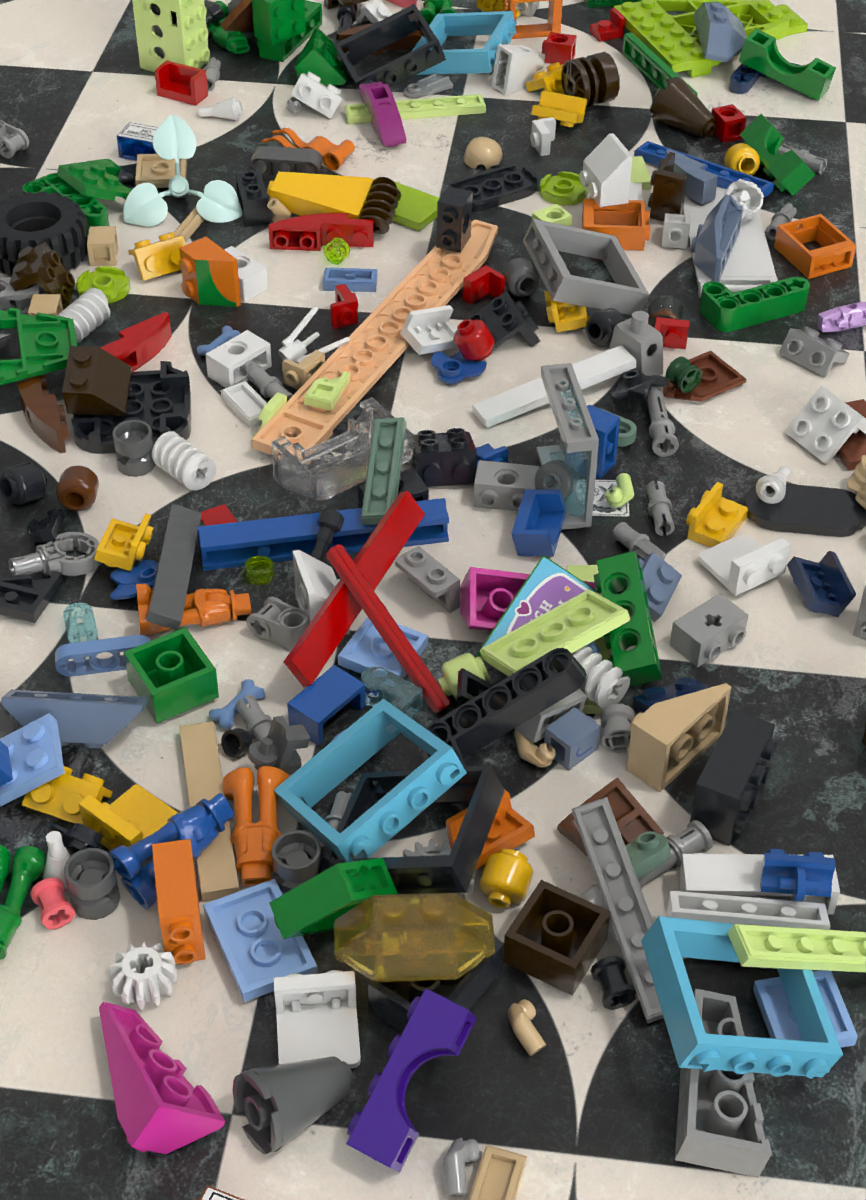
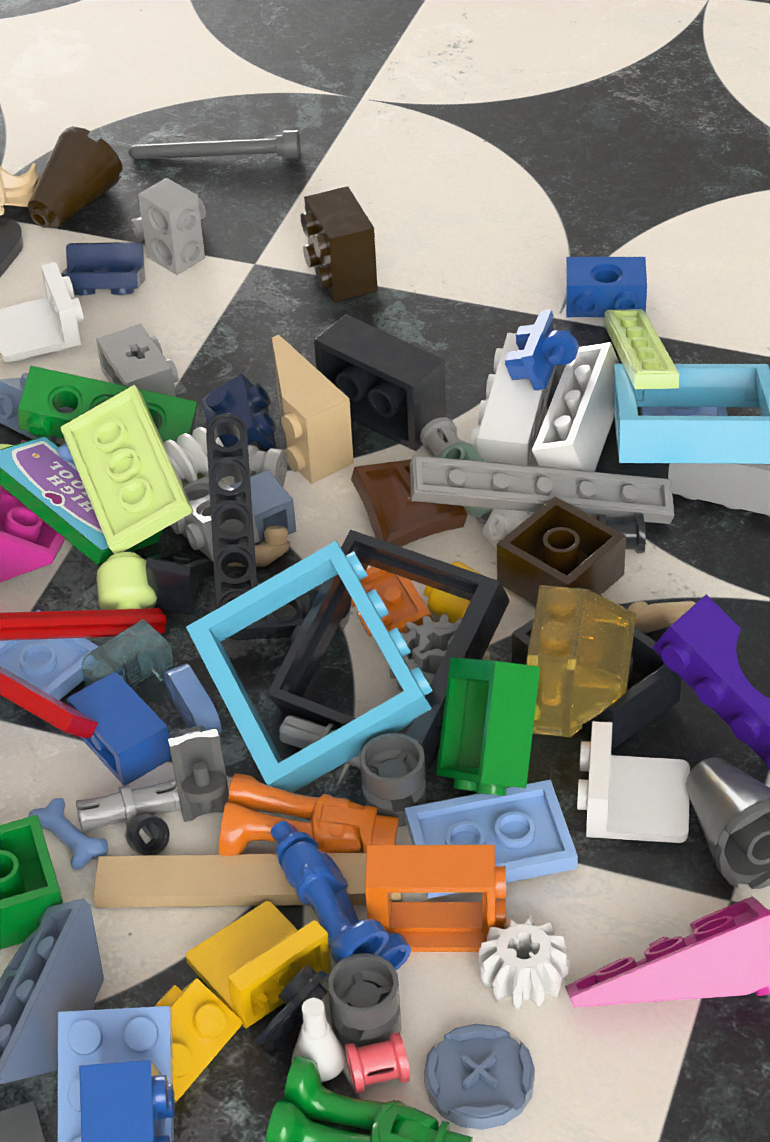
camera: 75 degrees left, 0 degrees up
(53, 968) = (479, 1076): none -> sand blue tile

